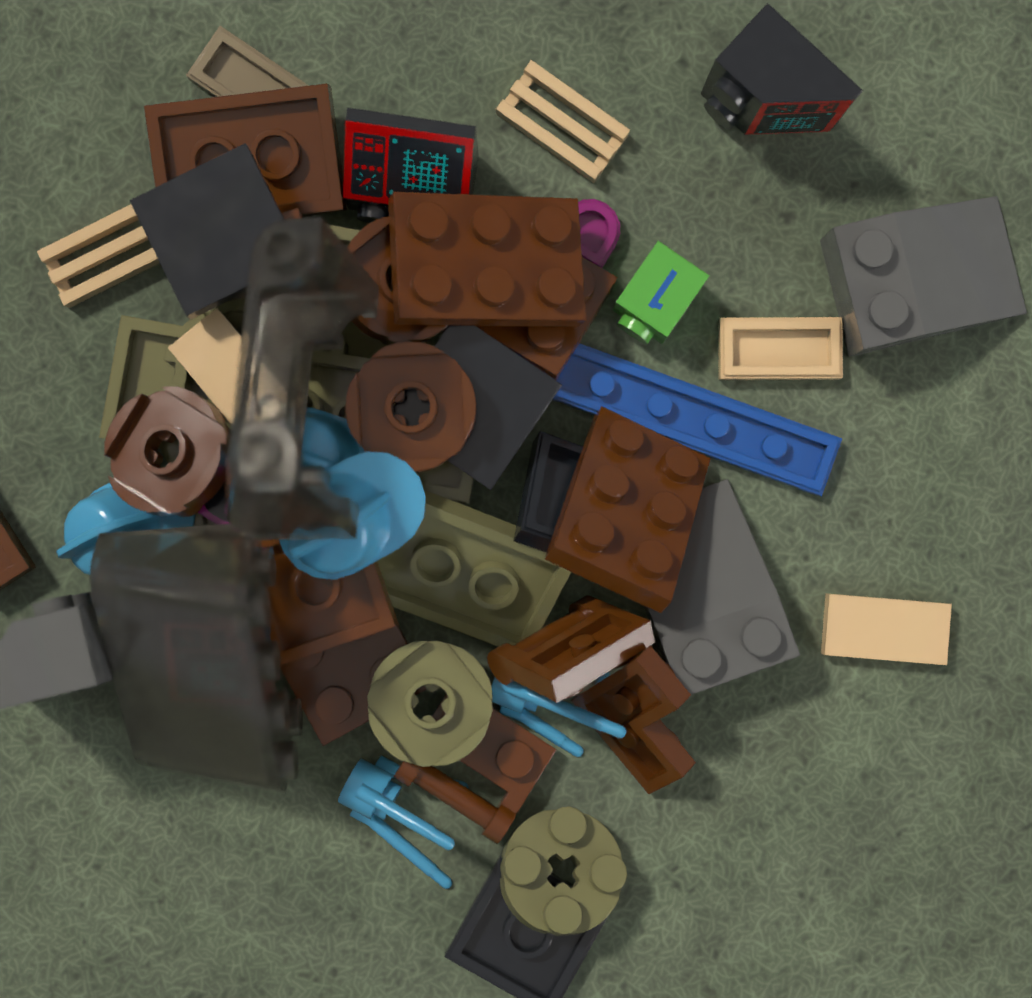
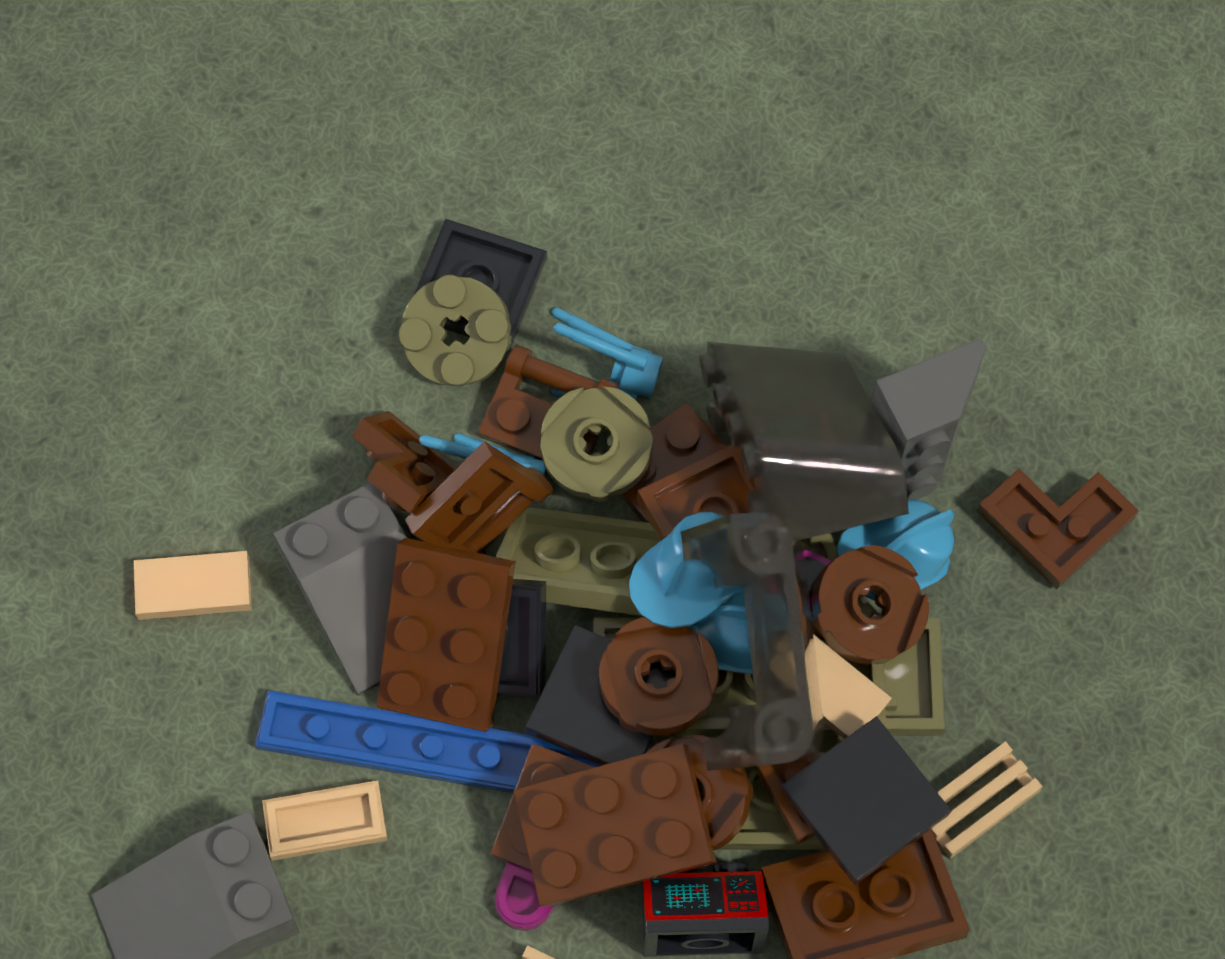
camera: 170 degrees right, 20 degrees down
(658, 295) = (448, 842): bright green brick -> none

